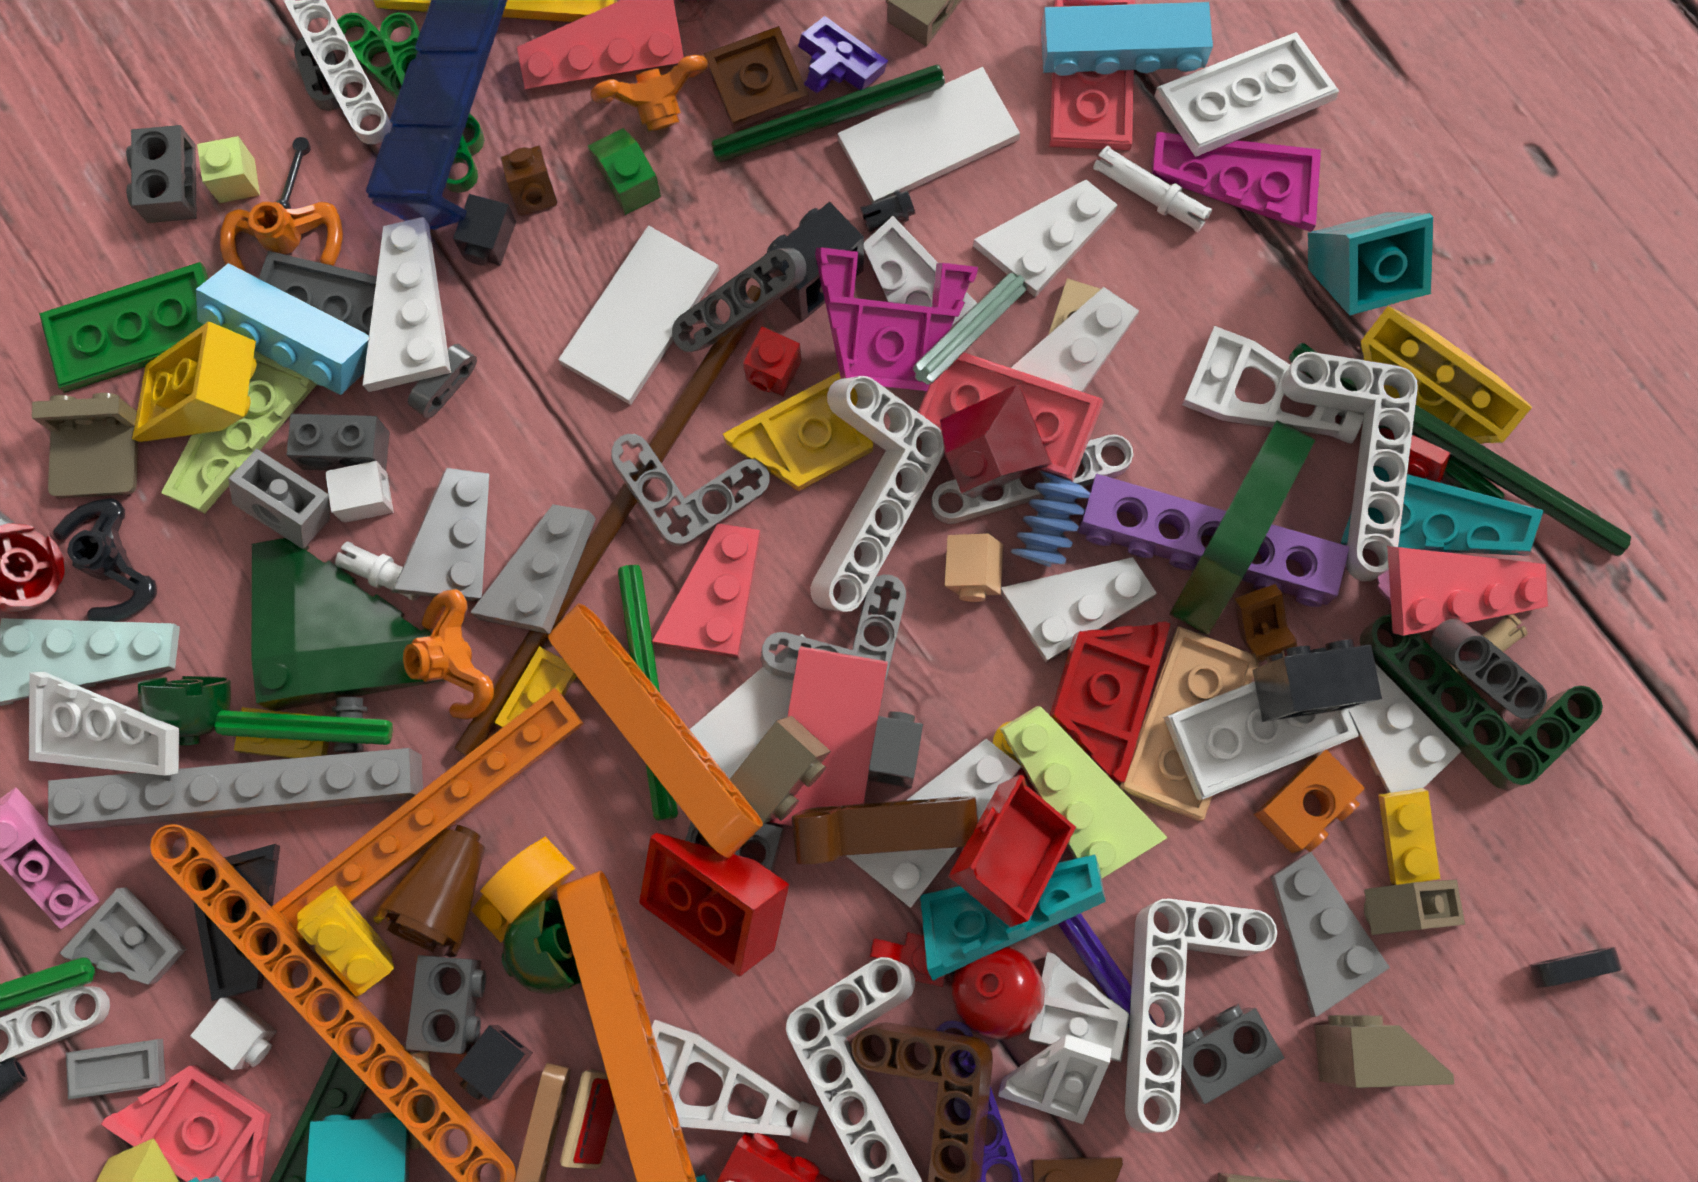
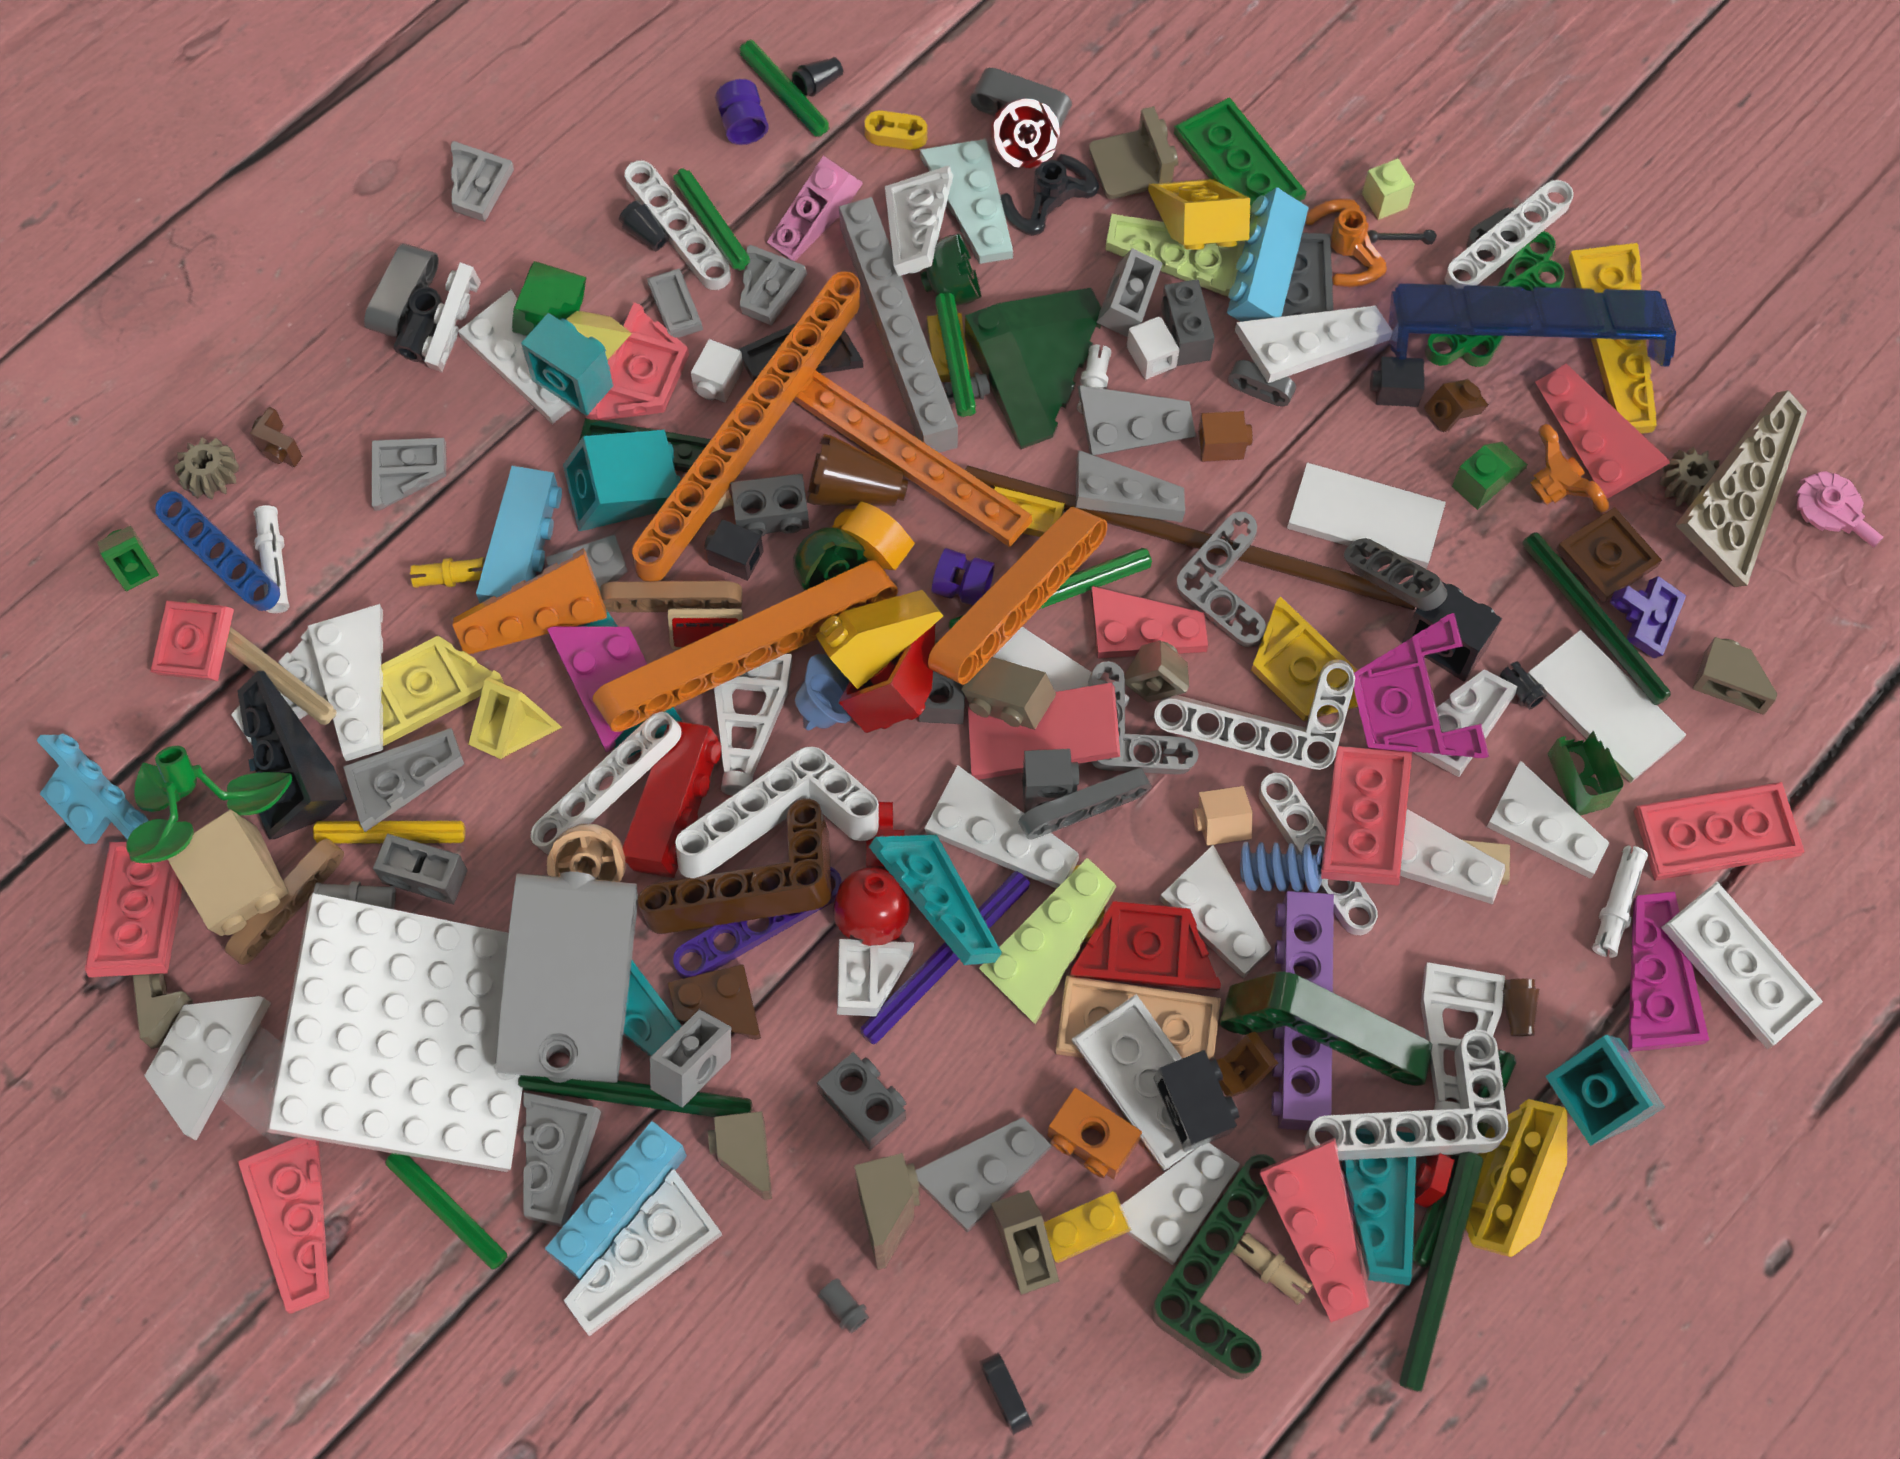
camera: 75 degrees right, 10 degrees down
(171, 172) = (1368, 145): dark grey brick -> none
(345, 941) = (801, 422): yellow brick -> none
(448, 655) = (1037, 437): orange piece -> none
(500, 441) = (1224, 436): none -> dark orange brick
(613, 773) = (975, 580): none -> dark purple wheel
(664, 909) = (874, 634): none -> yellow slope
(714, 990) = (820, 694): none -> medium blue piece
(772, 362) = (1354, 621): red brick -> none
(786, 591) = (1158, 672): none -> dark tan slope
(883, 827) = (981, 779): reddish brown beam -> none
(930, 715) = (1084, 803): none -> dark grey beam
(969, 328) = (1434, 767): sand green axle -> none
(993, 442) = (1331, 801): dark red slope -> none
(1009, 157) = (1597, 762): none -> green piece
(1012, 852) = (987, 879): red container -> none
(1059, 1078) = (812, 968): white wing -> none
(1126, 38) = (1753, 844): medium azure brick -> none
(1170, 994) = (903, 1037): white beam -> none
(1247, 319) = (1520, 1004): none -> reddish brown cone
(1452, 1126) = (843, 1306): none -> dark grey pin
(1489, 668) = (1239, 1274): dark grey beam -> none

